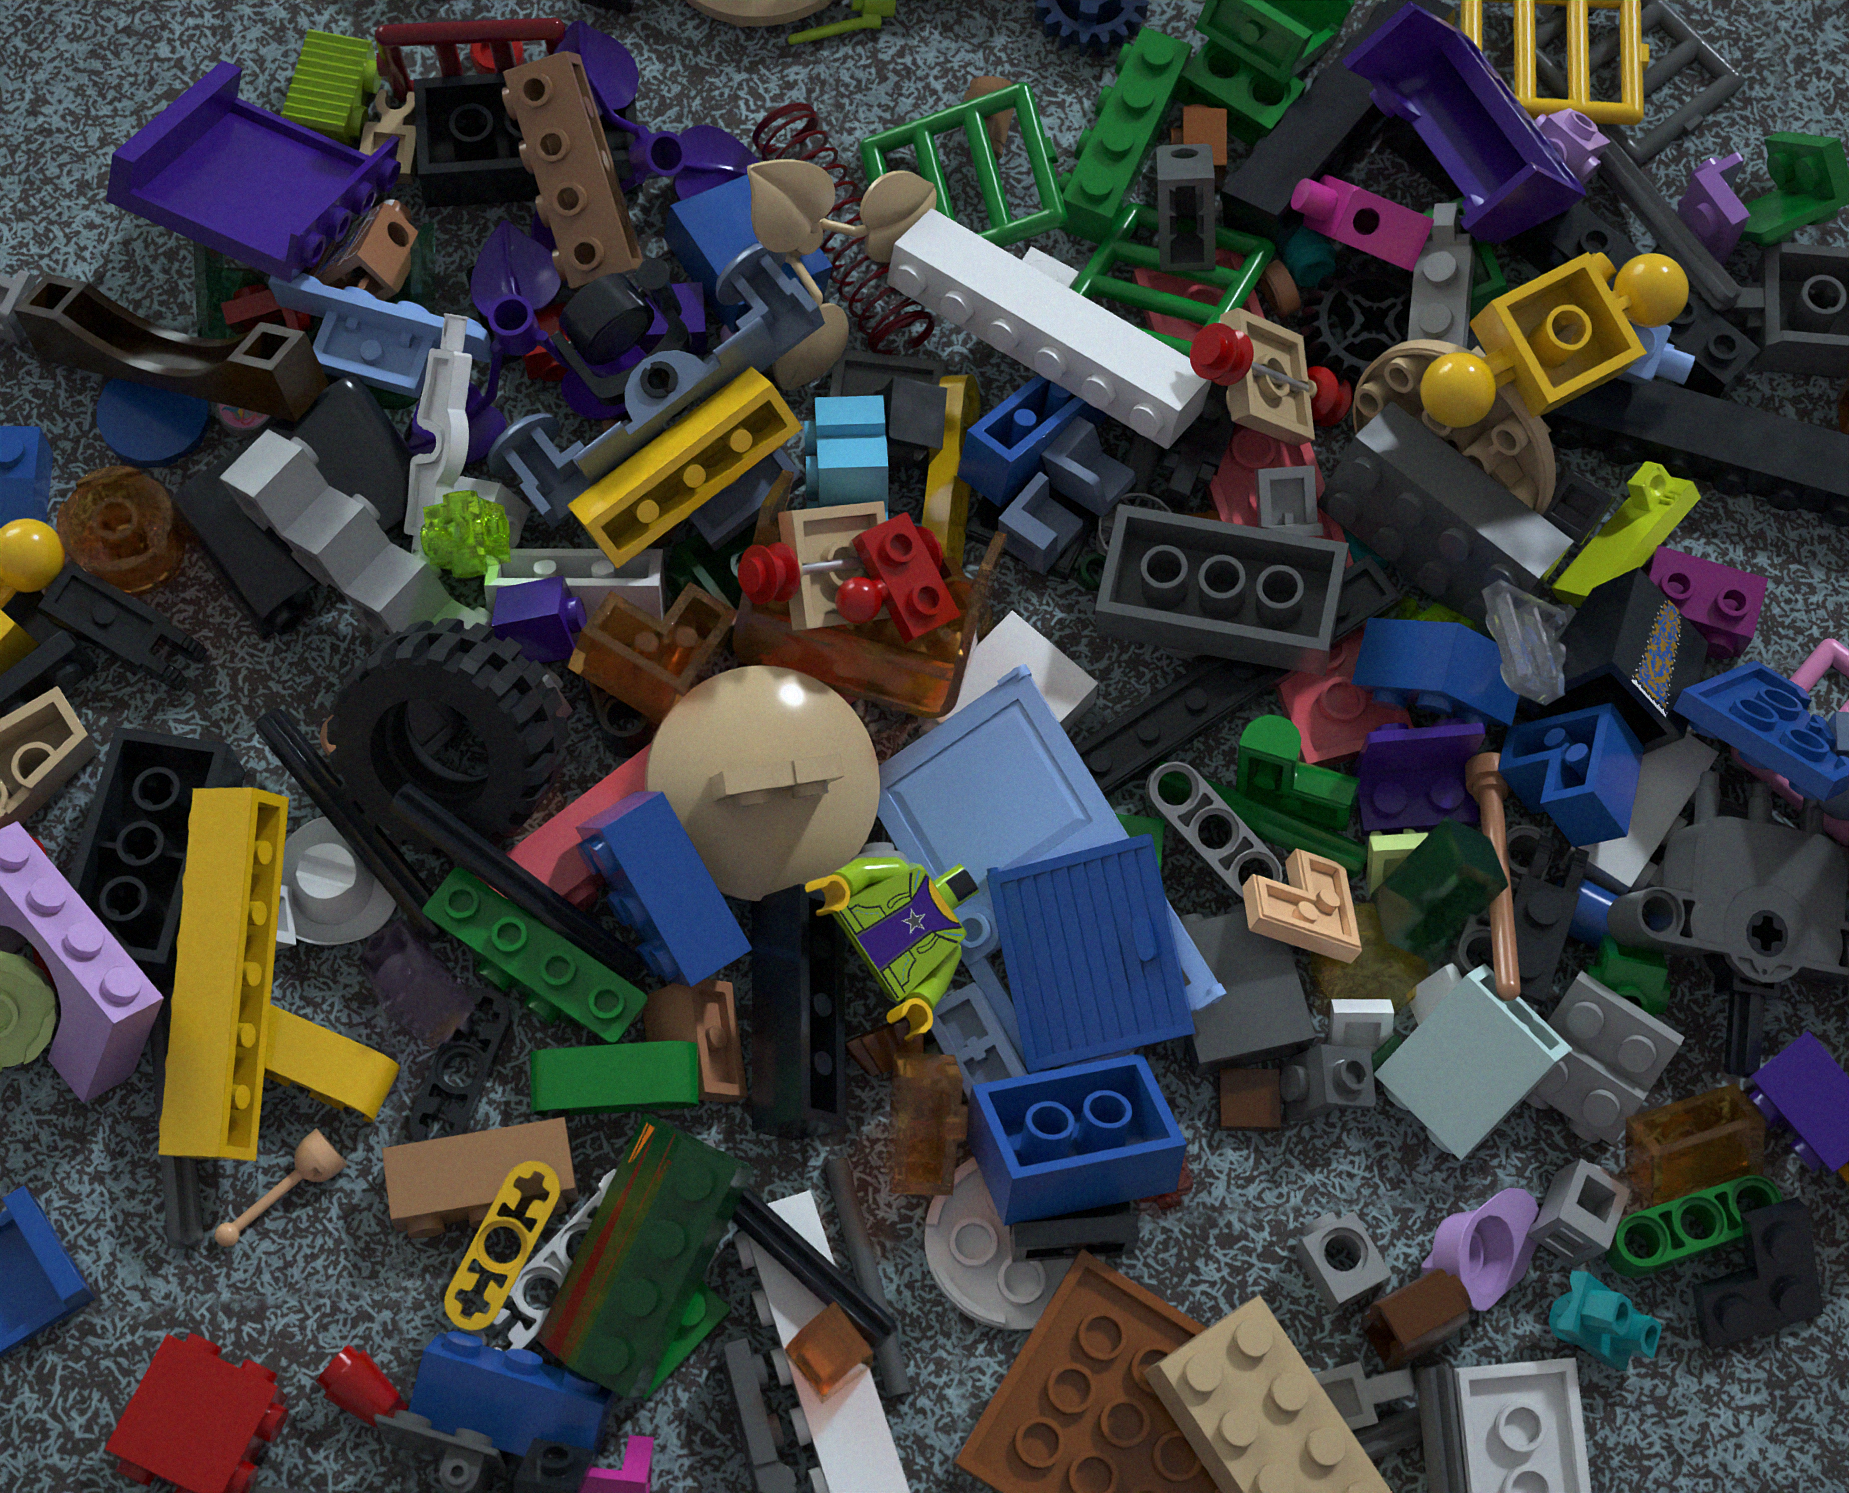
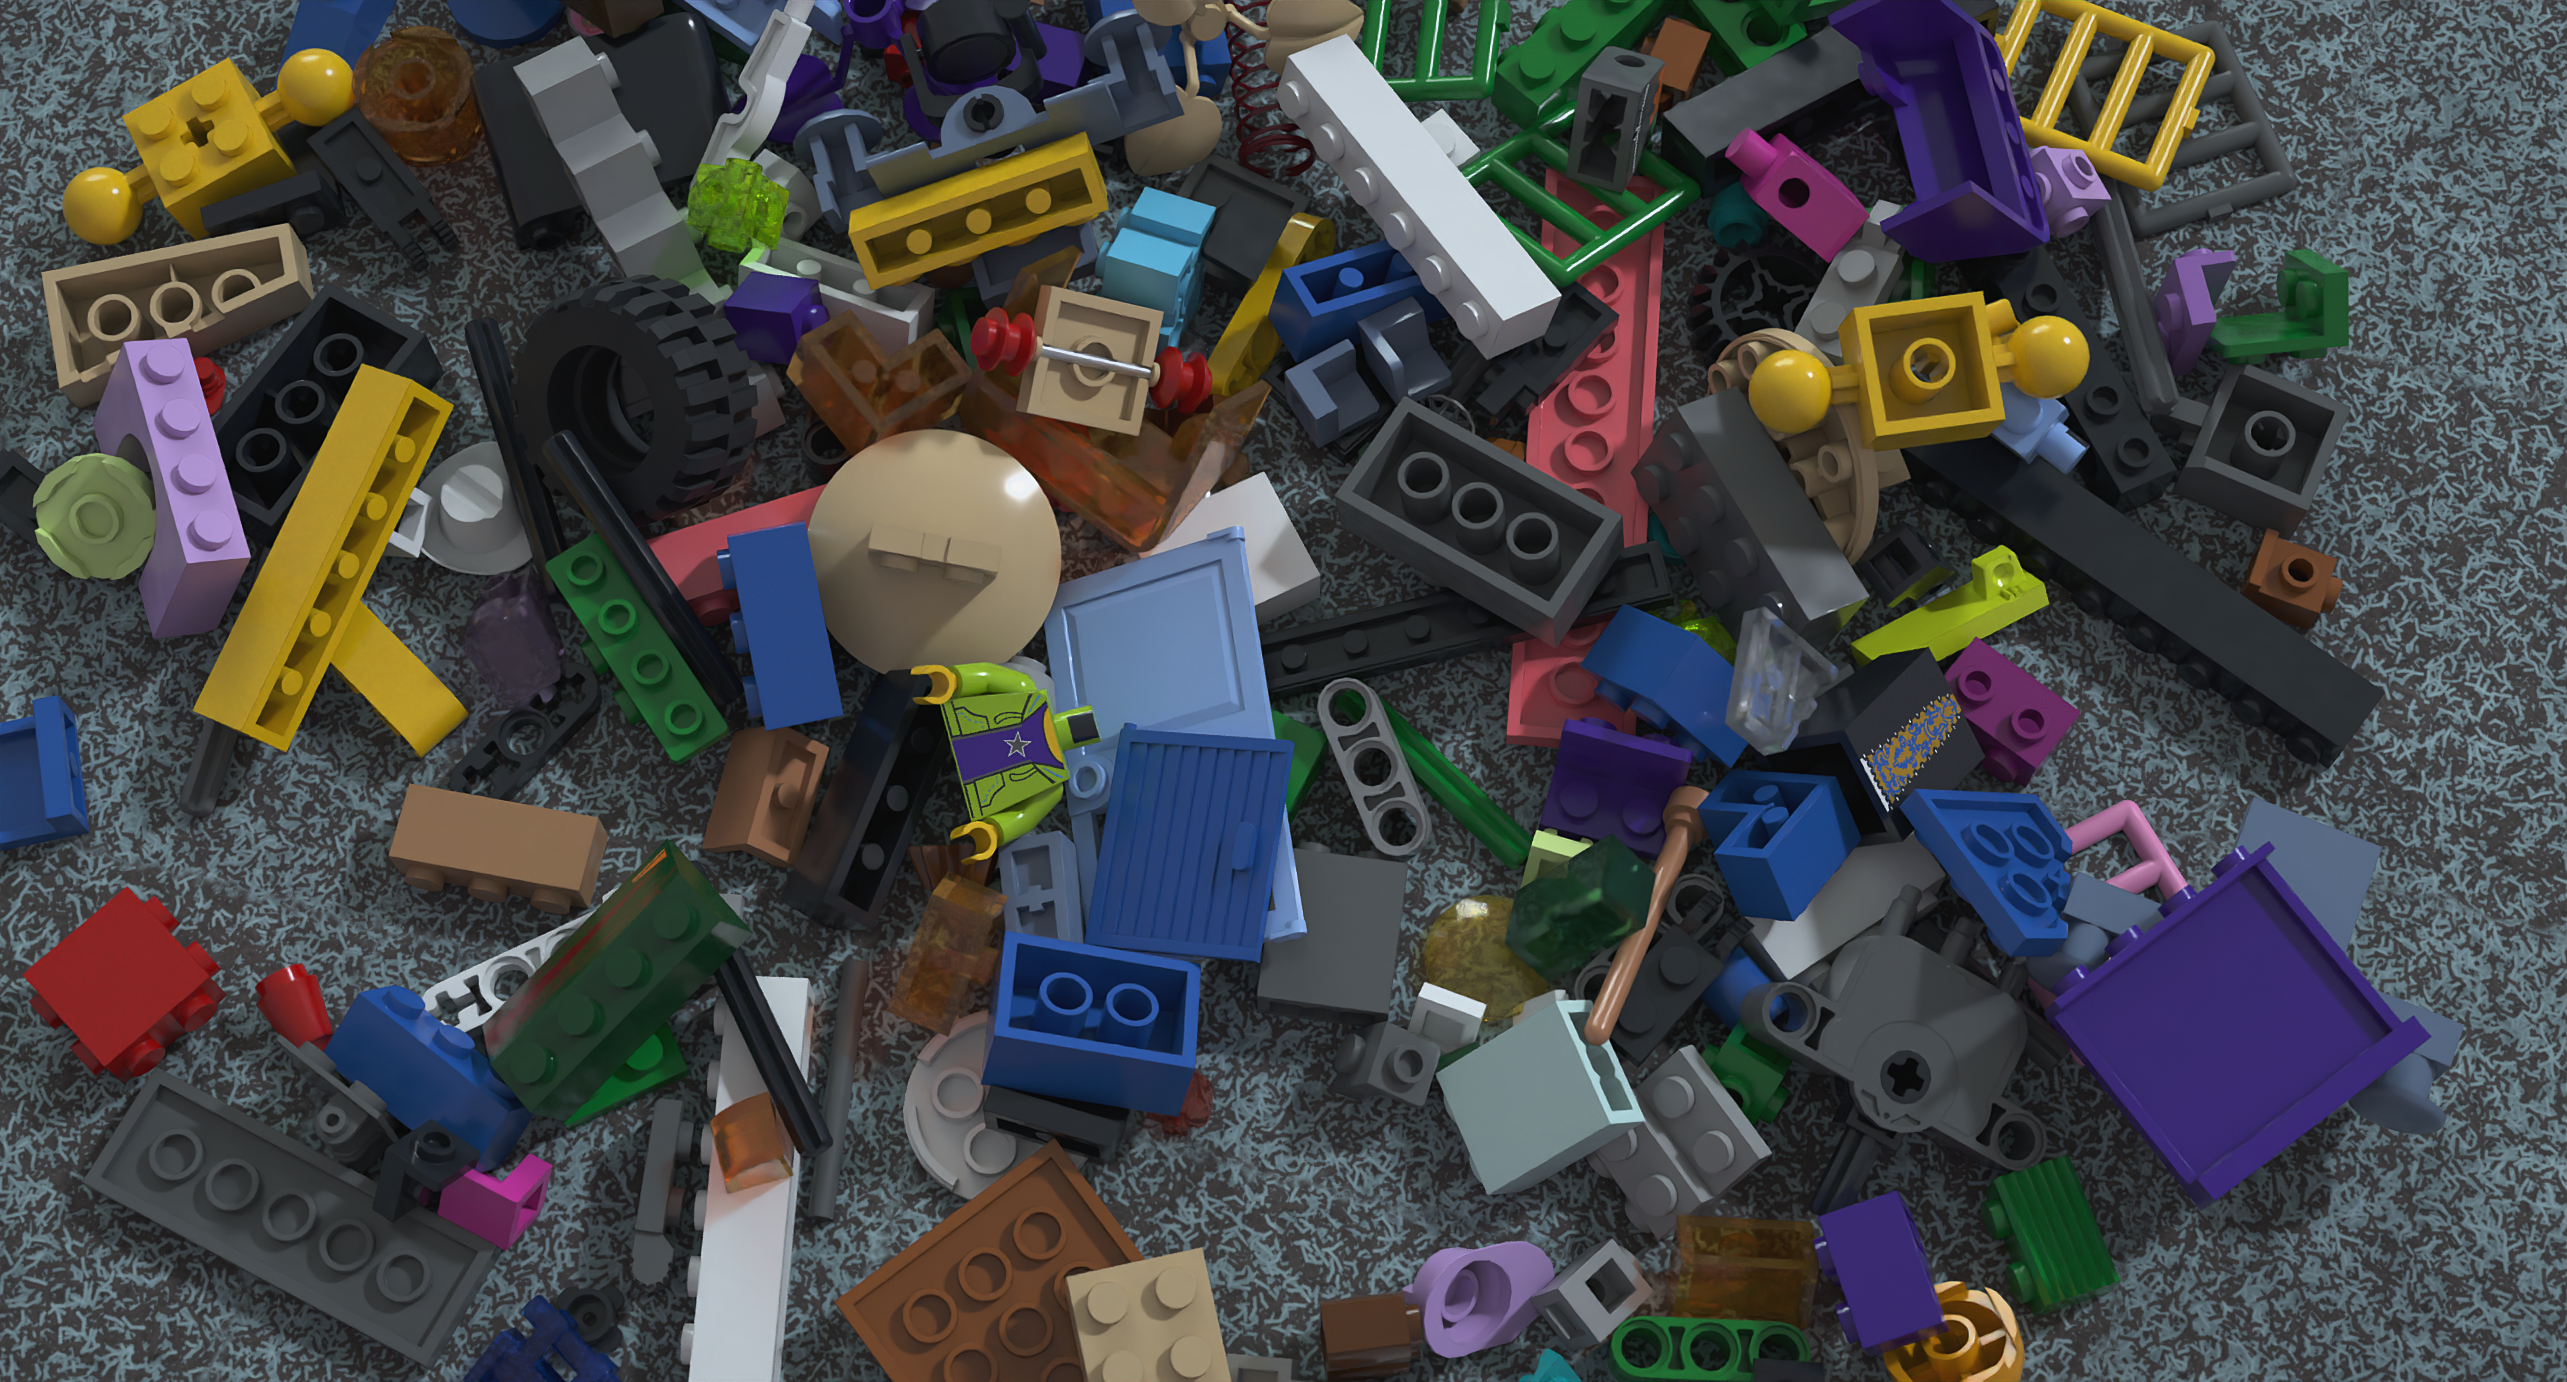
camera: 25 degrees right, 0 degrees up
(313, 1160) = (349, 774): light nougat hinge -> none
(495, 1293) = (458, 965): yellow beam -> none
(615, 1078) = (666, 798): green beam -> none
(900, 578) = (1148, 395): red plate -> none
(1249, 1099) = (1301, 1055): reddish brown tile -> none
(1268, 377) = (1624, 320): plate -> none
(1273, 774) = (1463, 731): green brick -> none
(1279, 289) = (1692, 238): nougat tile -> none
(1287, 500) = (1597, 457): light grey bracket -> none
(1308, 912) = (1438, 889): light nougat tile -> none
(1337, 1287) = (1326, 1280): light grey brick -> none

